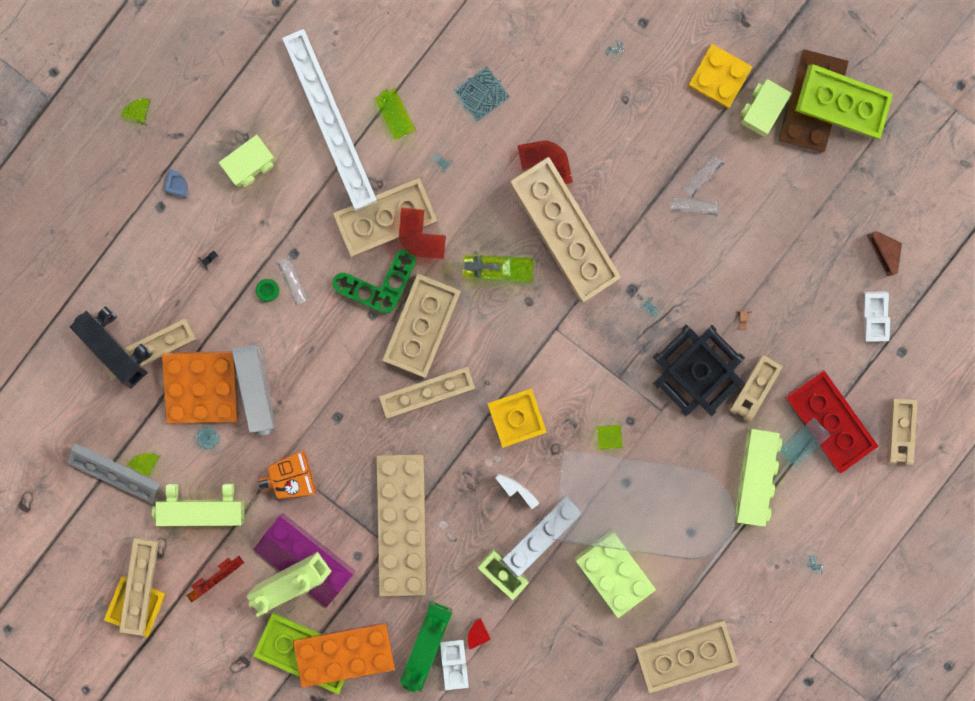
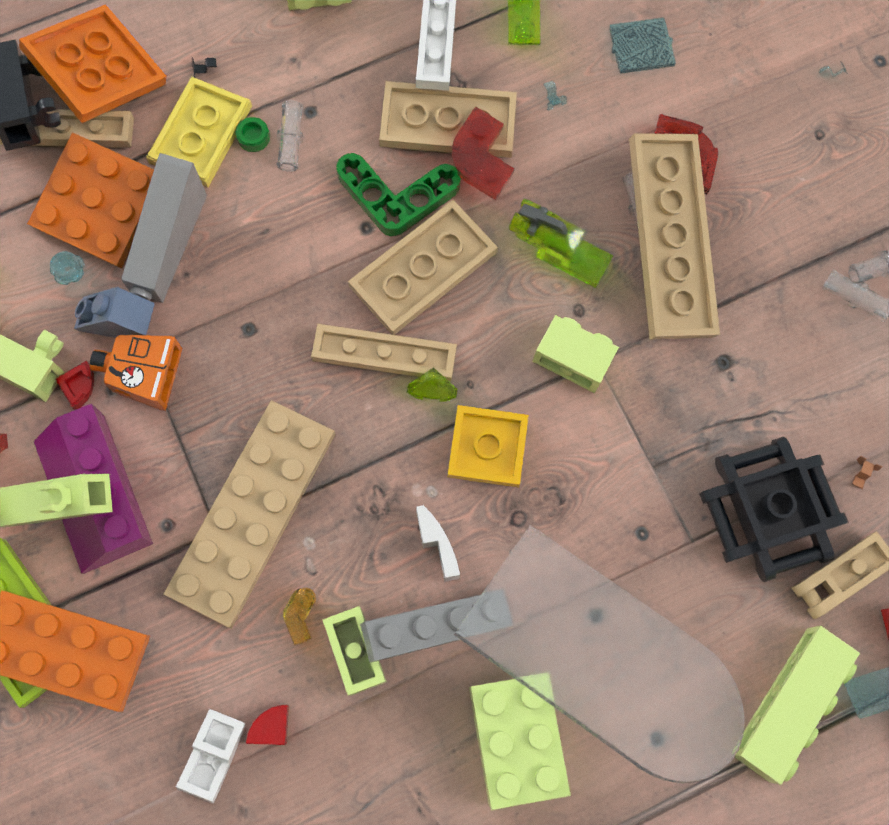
camera: 25 degrees right, 15 degrees down
(144, 300) = (92, 62): none -> orange plate
(233, 305) = (201, 127): none -> light yellow tile
(255, 453) = (113, 313): none -> sand blue slope
(257, 504) = (77, 384): none -> red tile
(425, 647) = (183, 705): green brick -> none
(457, 566) = (296, 614): none -> clear yellow arm
(465, 398) = (432, 386): none -> clear neon green tile
(540, 334) = (575, 353): none -> yellowish green brick
(609, 436) = (603, 539): clear neon green tile -> none
(650, 307) = (739, 395): clear light blue piece -> none

